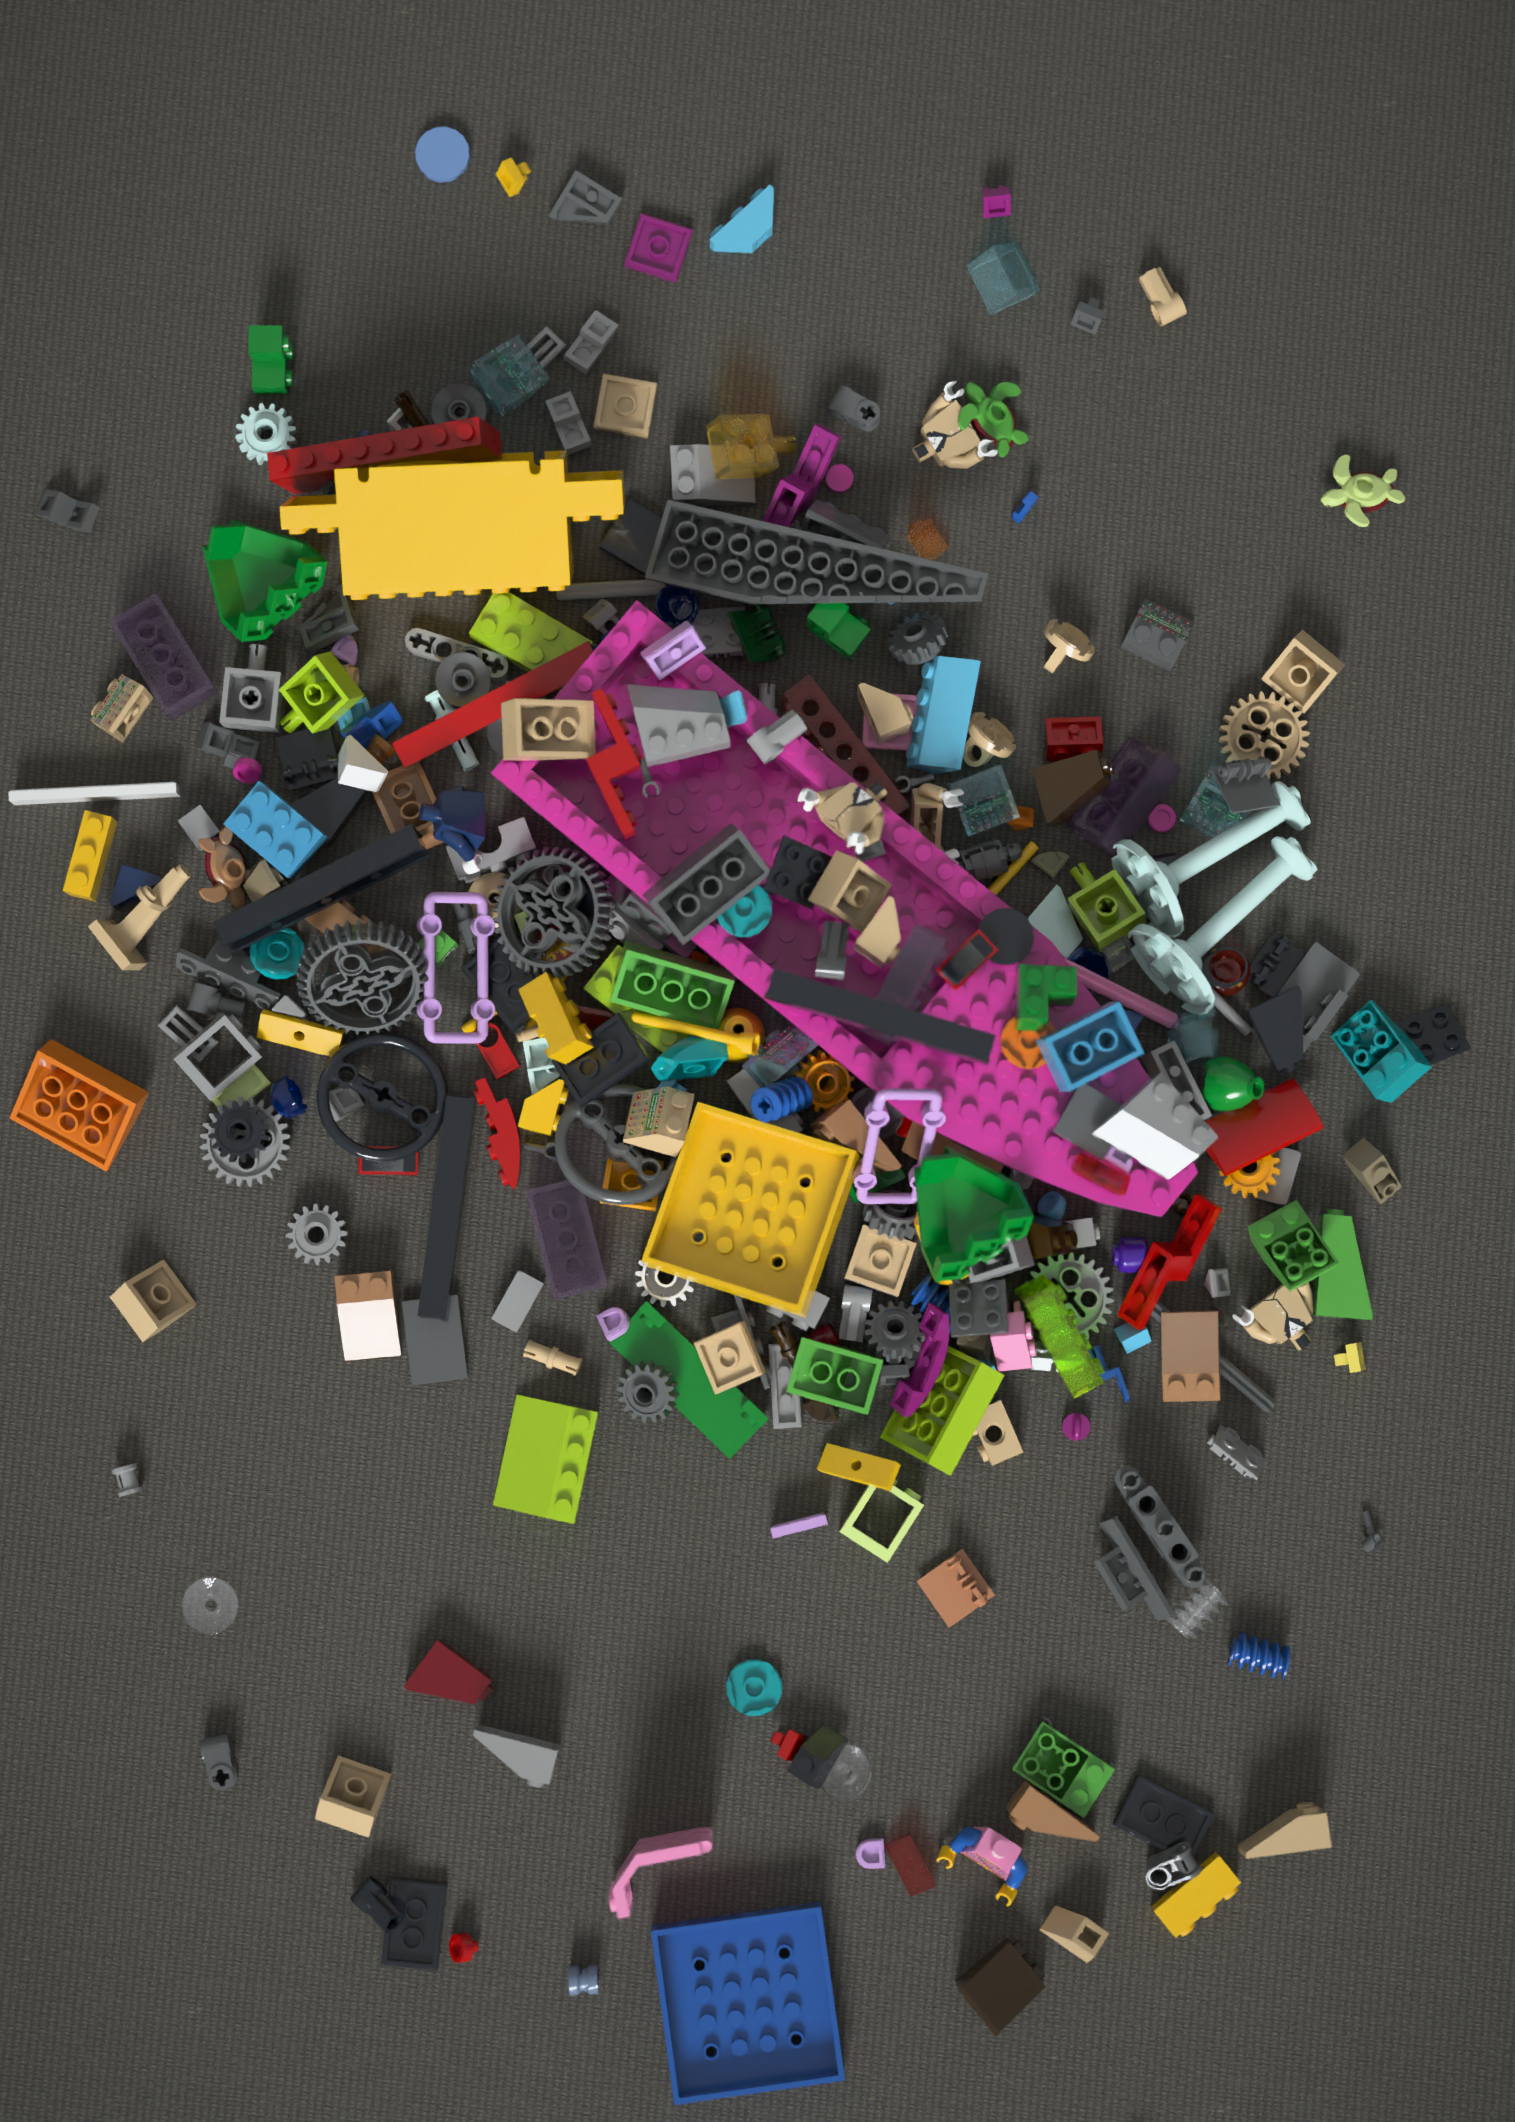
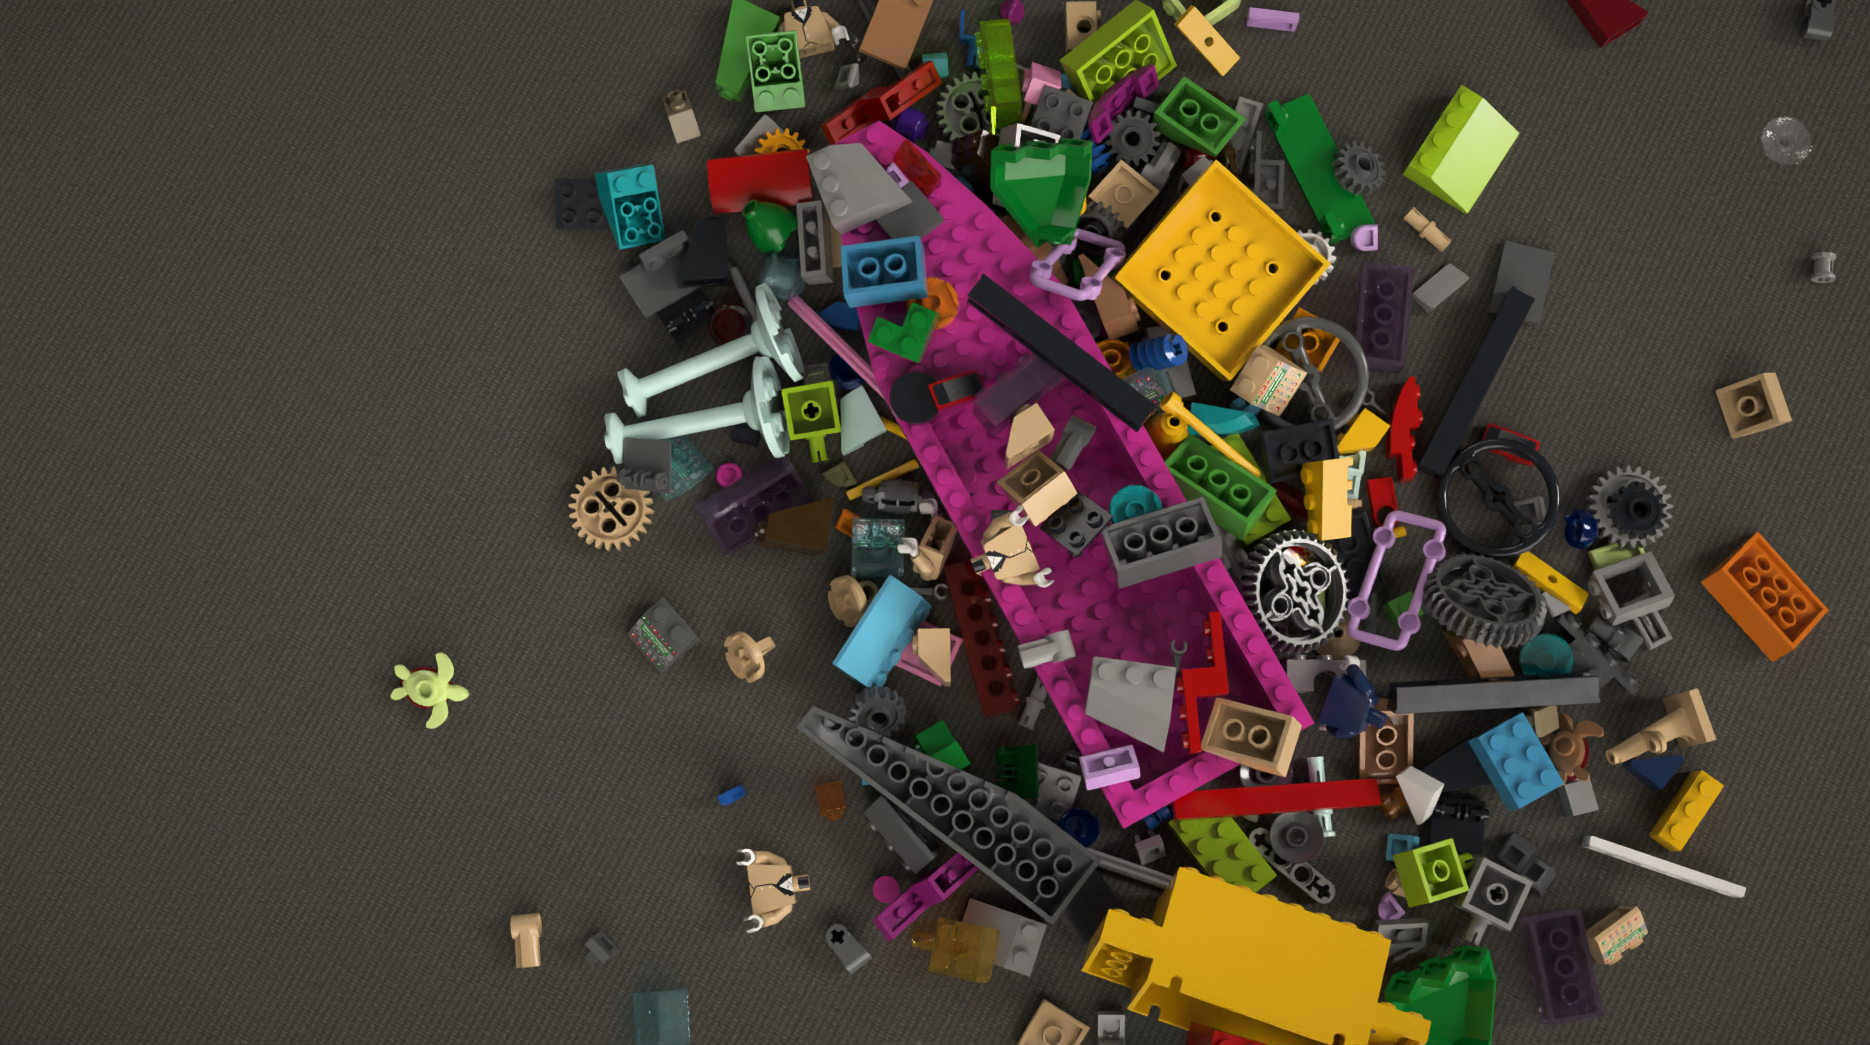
camera: 155 degrees left, 5 degrees down
(247, 770) = (1518, 832): dark pink tile -> none
(332, 1234) = (1602, 396): light grey gear -> none
(368, 1315) = (1571, 325): slope -> none
(380, 720) = (1383, 831): blue slope -> none
(729, 1357) = (1280, 167): tan tile -> none
(733, 709) = (1076, 690): medium azure slope -> none
(992, 416) = (726, 889): bright green animal -> none
(1072, 737) = (775, 572): red bracket -> none
(1303, 671) = (551, 550): tan slope -> none

